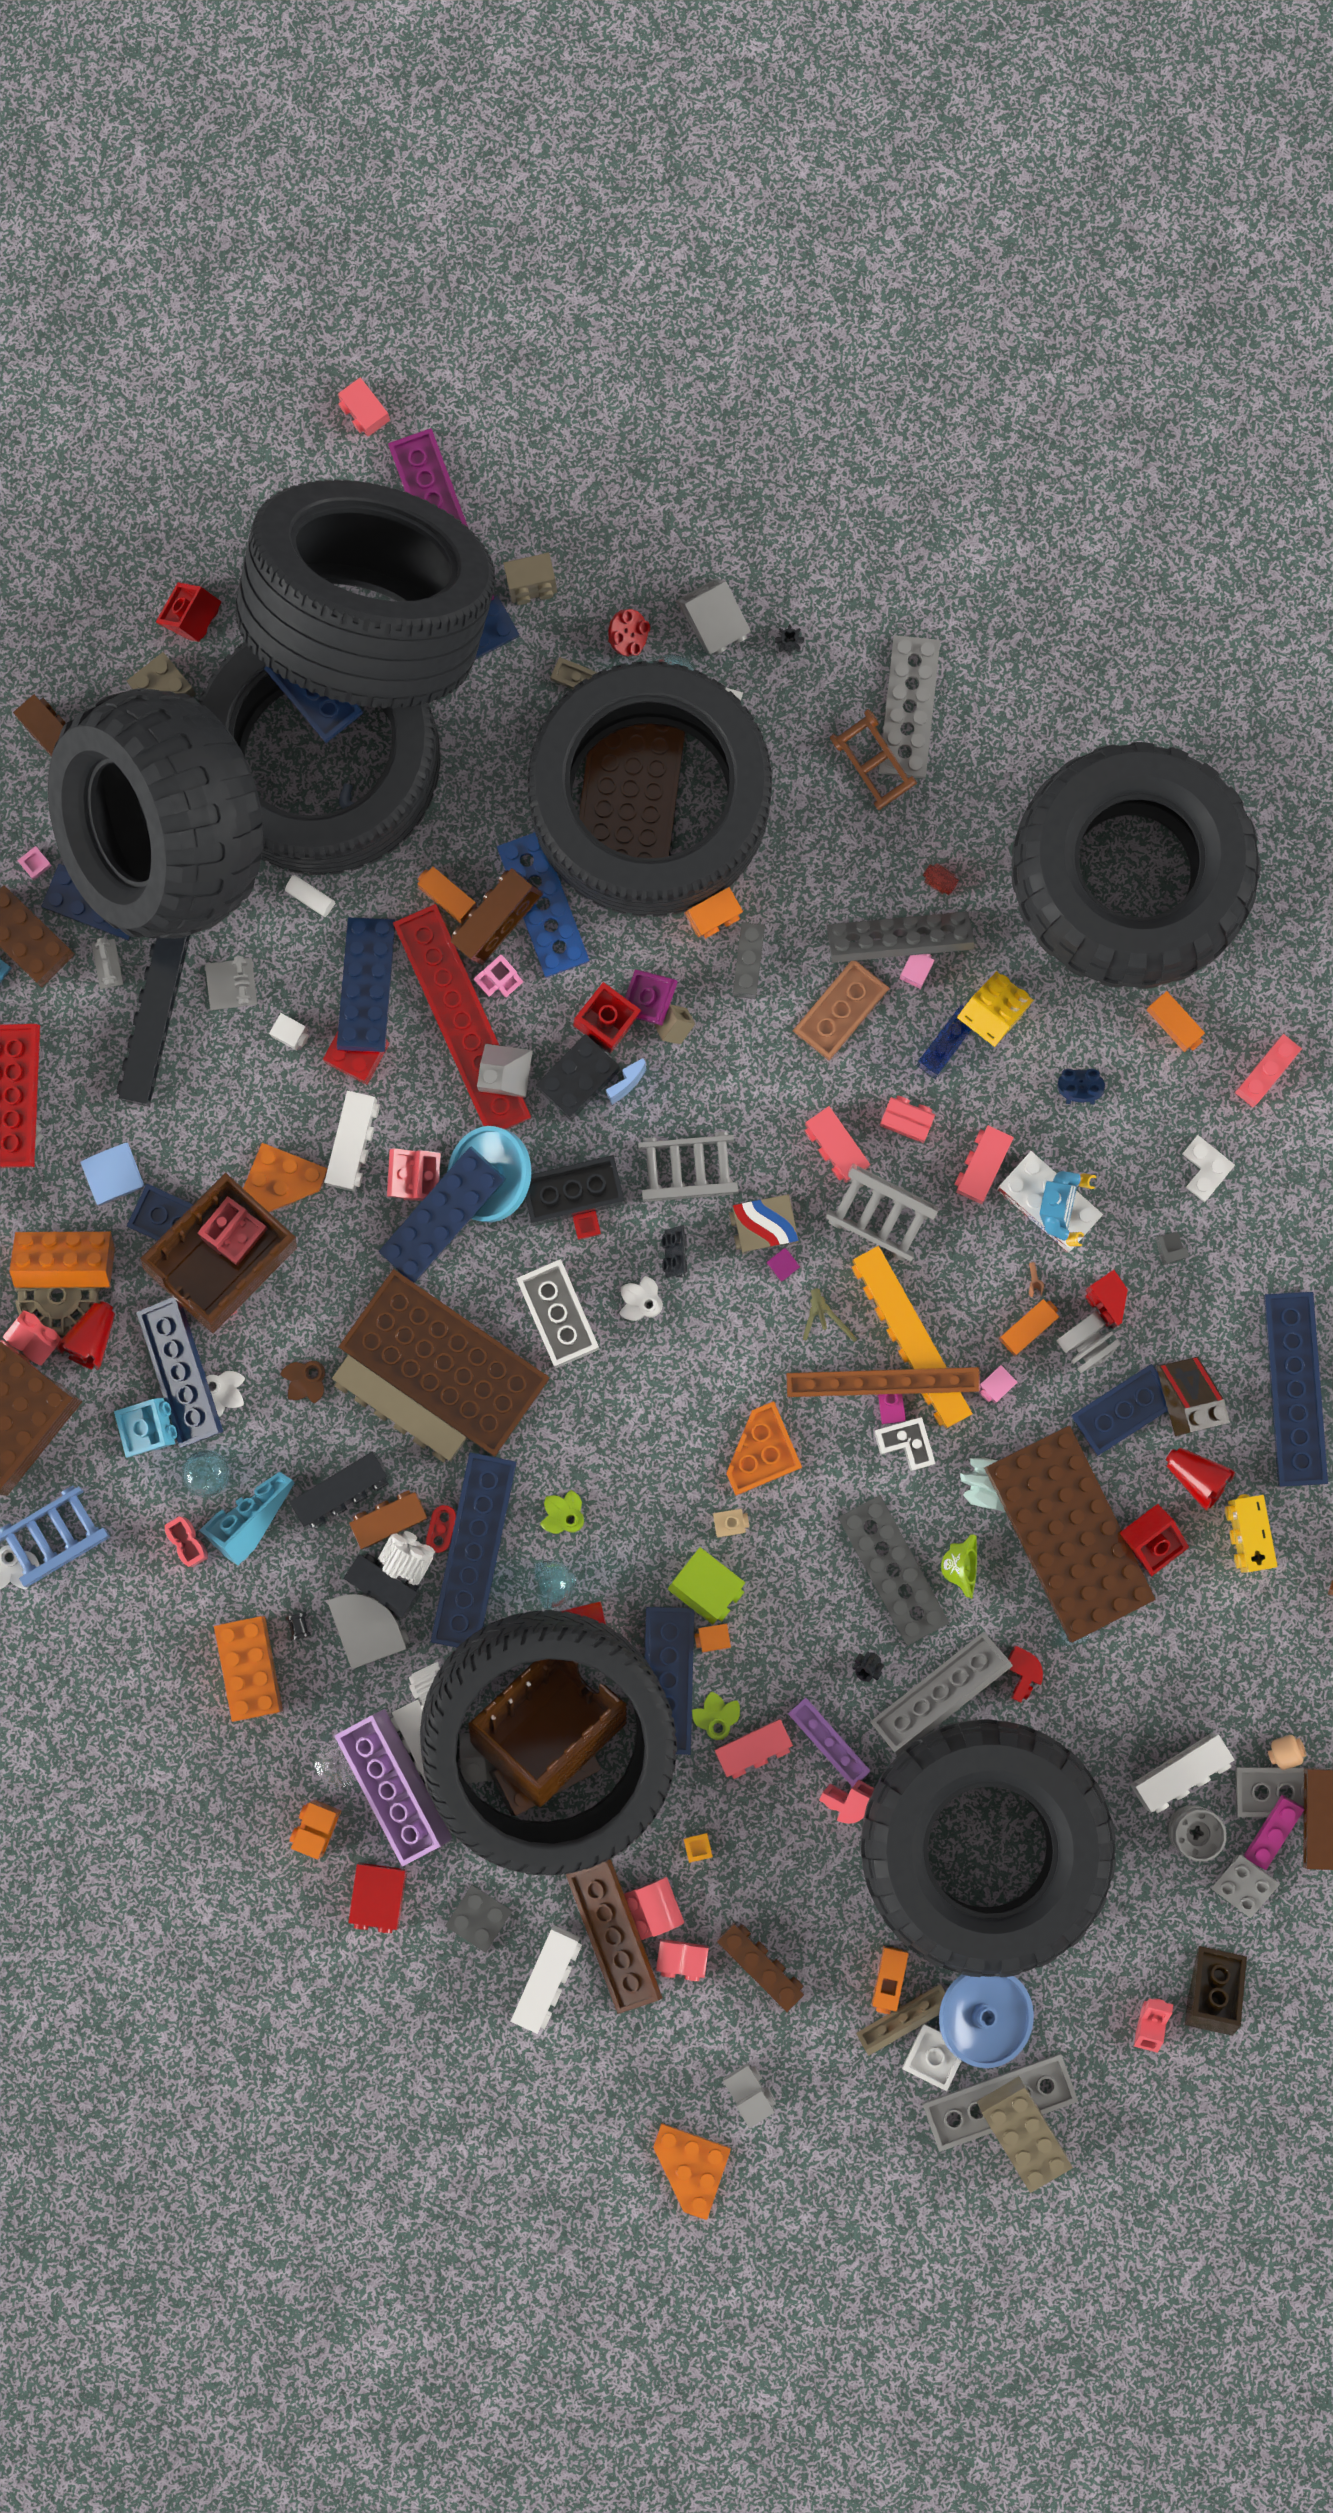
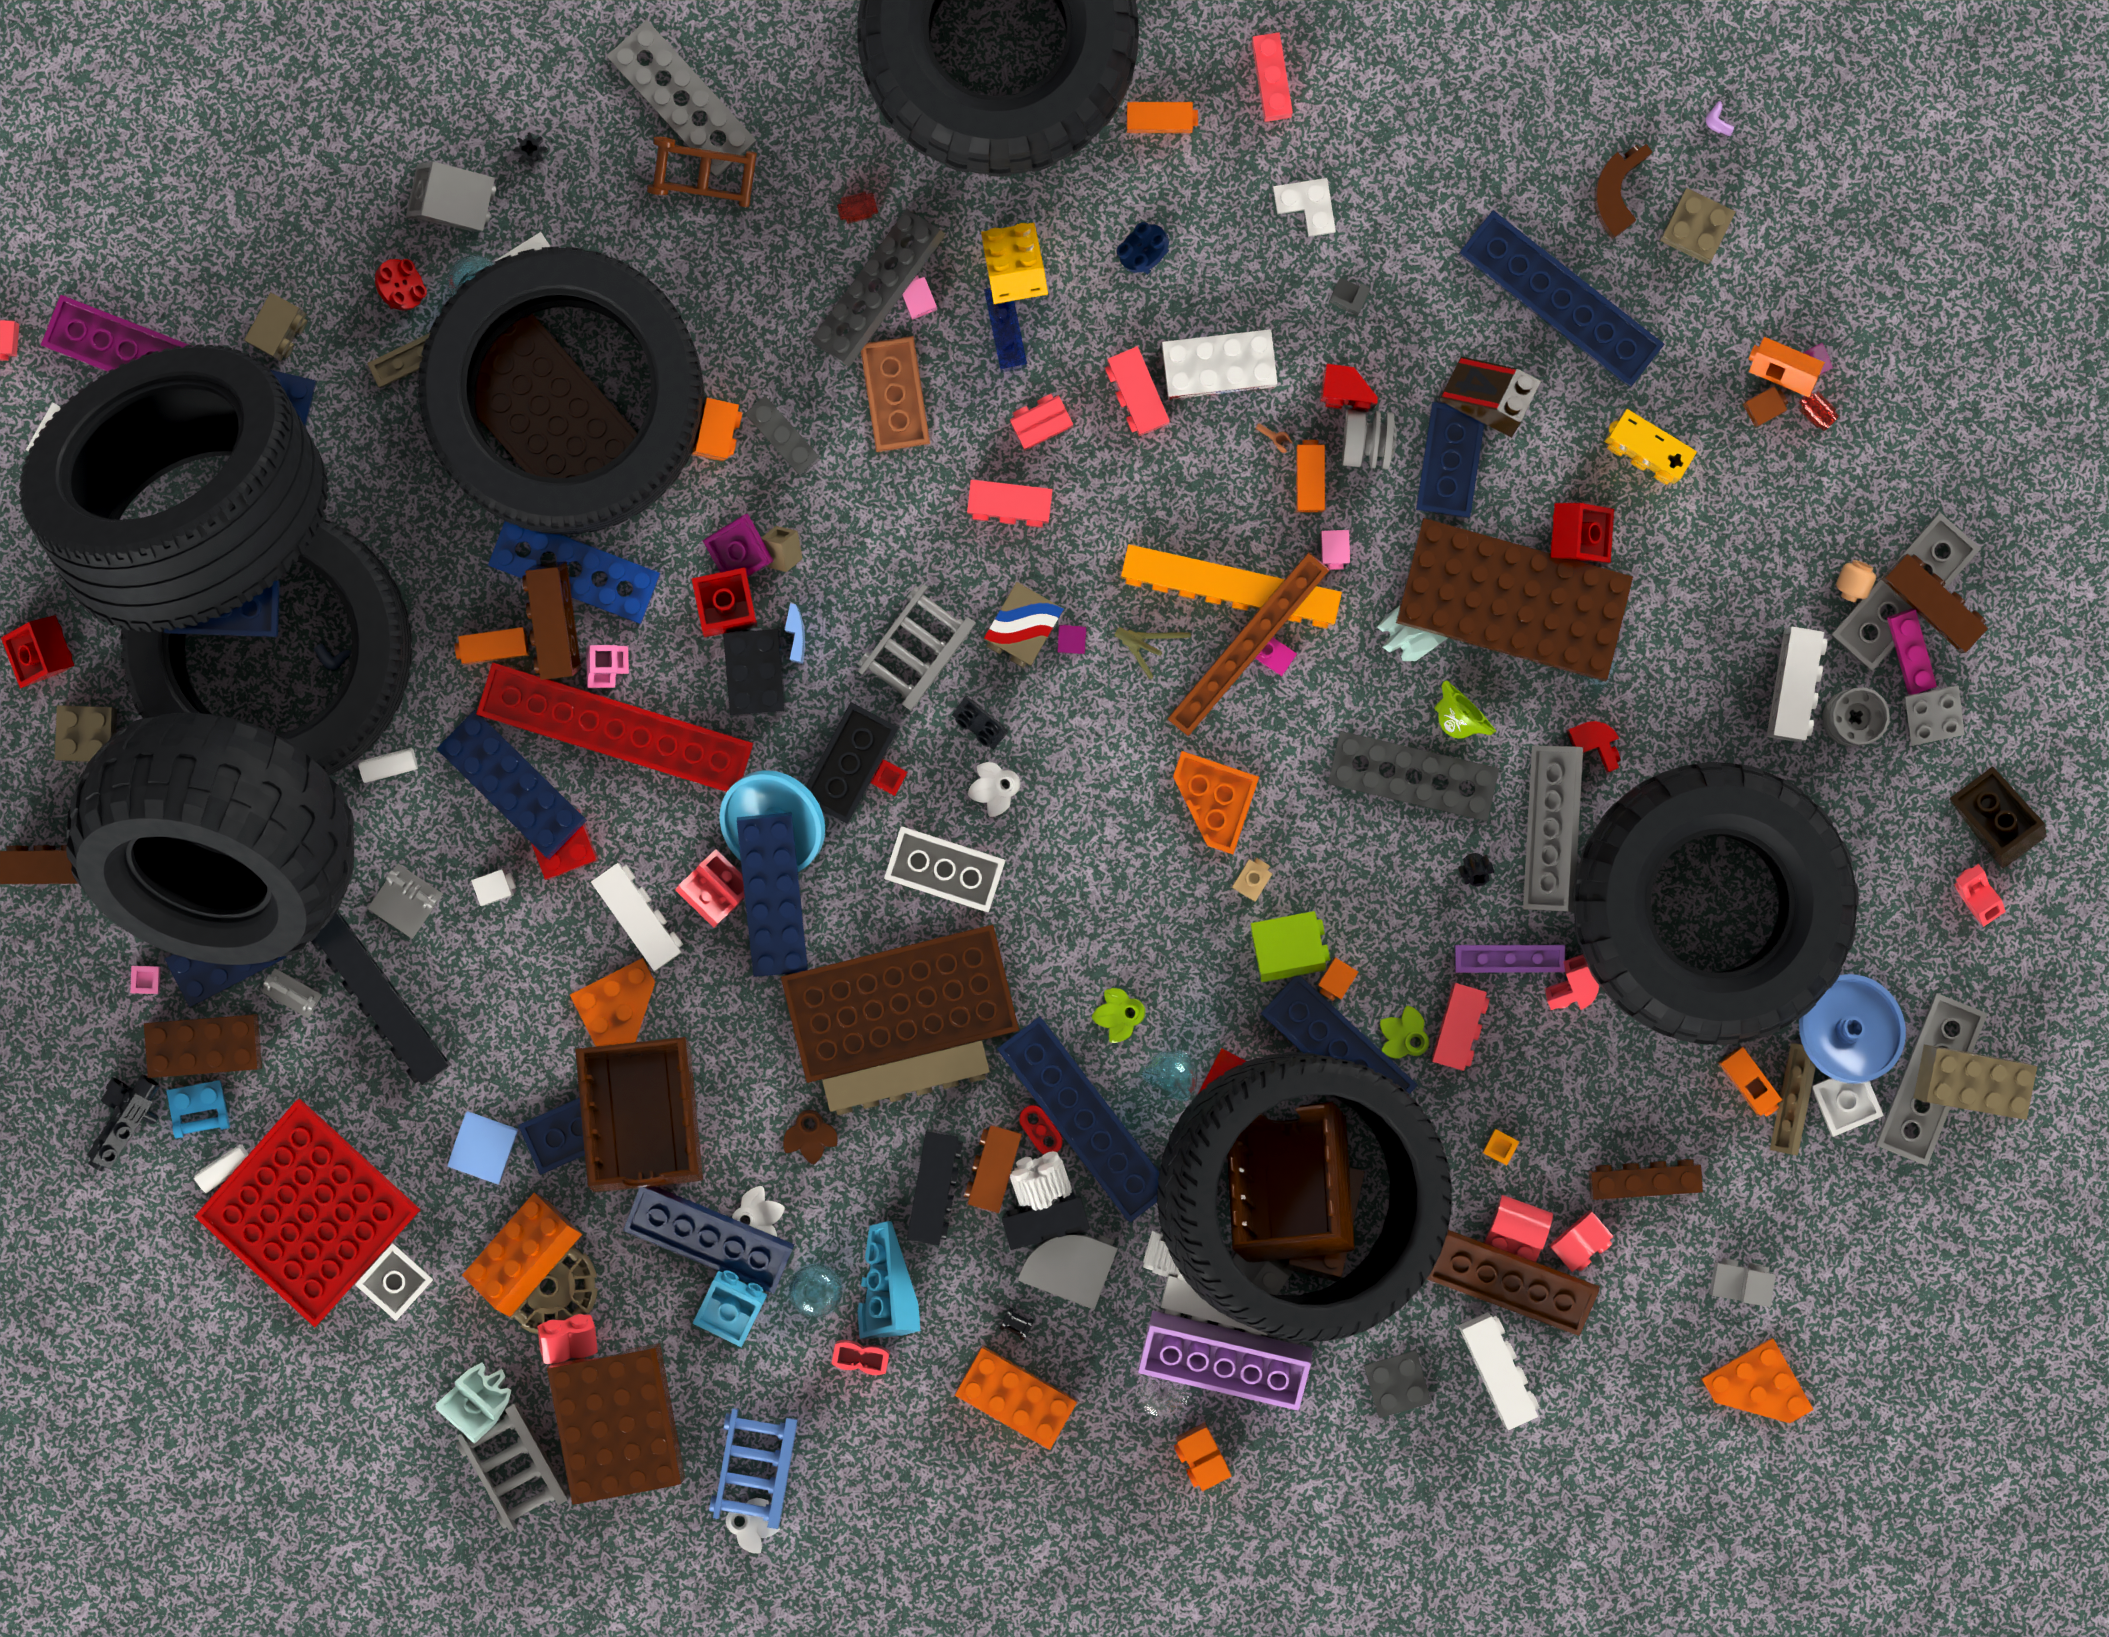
camera: 60 degrees left, 5 degrees up
(89, 1336) = (609, 1288): red cone -> none
(232, 1231) = (628, 1087): coral brick -> none
(377, 1897) = (1305, 1454): red brick -> none
(504, 1070) = (693, 730): light grey slope -> none
(880, 1189) = (1082, 499): light grey fence -> none
(910, 1437) = (1317, 661): white brick -> none
(1058, 1204) = (1230, 360): dark azure torso -> none
(1199, 1476) = (1562, 446): red cone -> none

